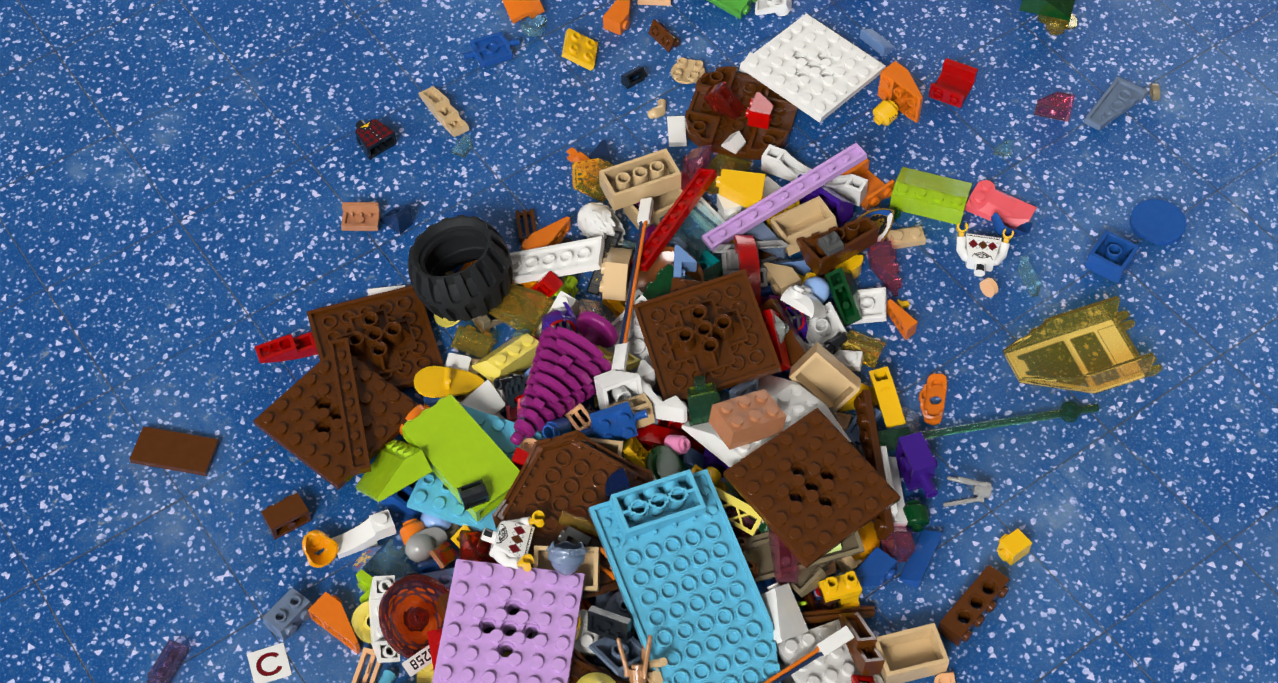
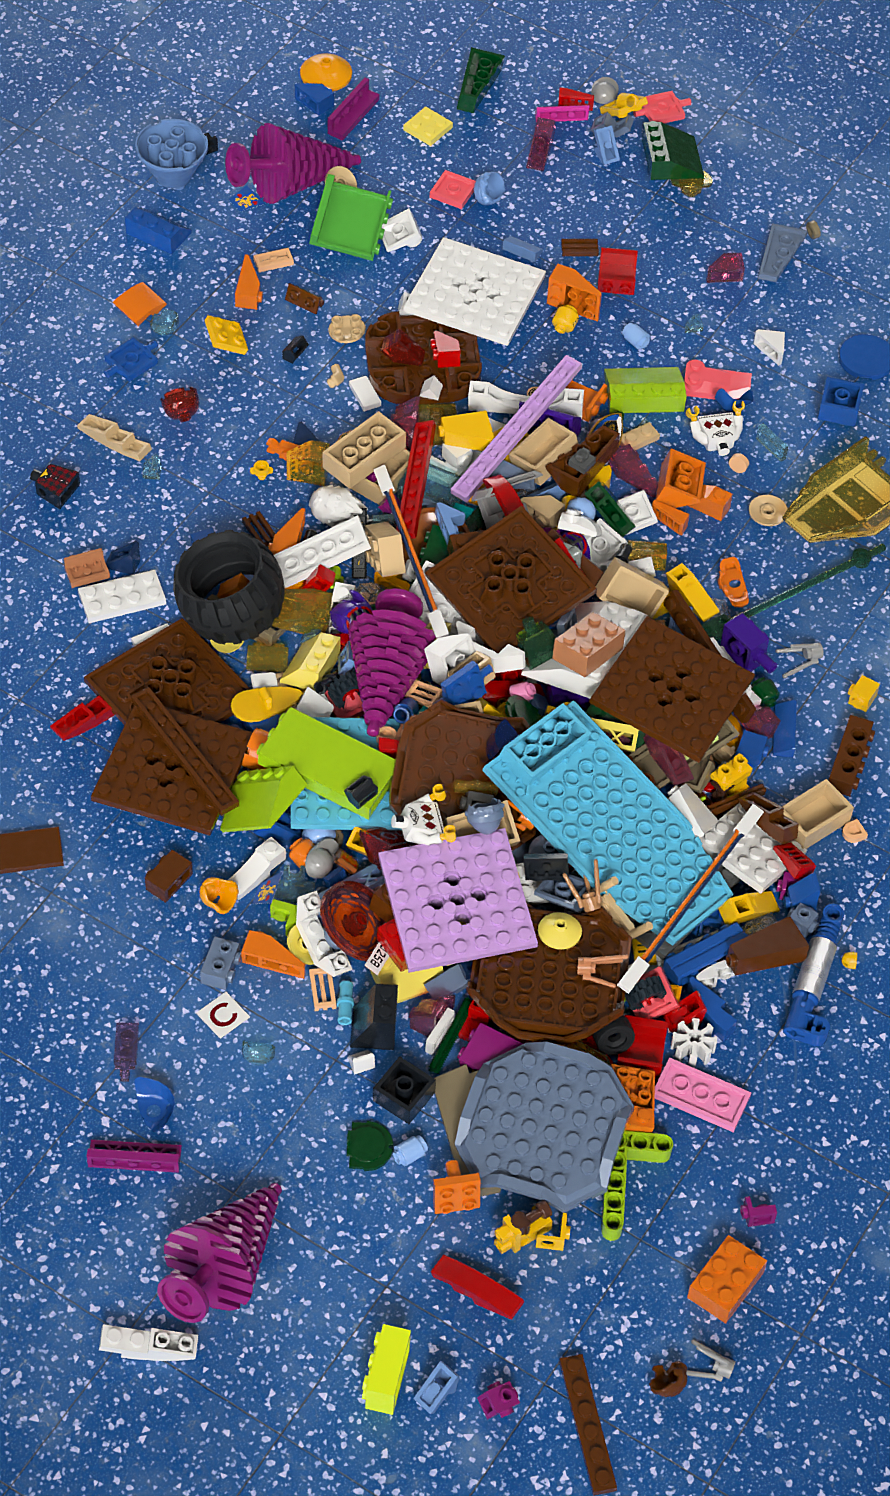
camera: 25 degrees left, 0 degrees up
(376, 249) = (121, 596): none -> white plate
(511, 98) = (181, 404): none -> clear red cylinder
(553, 173) = (261, 469): none -> yellow plate
(924, 287) = (680, 480): none -> orange slope
(933, 54) = (579, 247): none -> reddish brown tile
(941, 312) = (713, 502): none -> orange slope
(944, 144) = (636, 335): none -> light blue brick
(995, 334) = (767, 510): none -> tan dish
(1069, 185) = (771, 344): none -> white slope

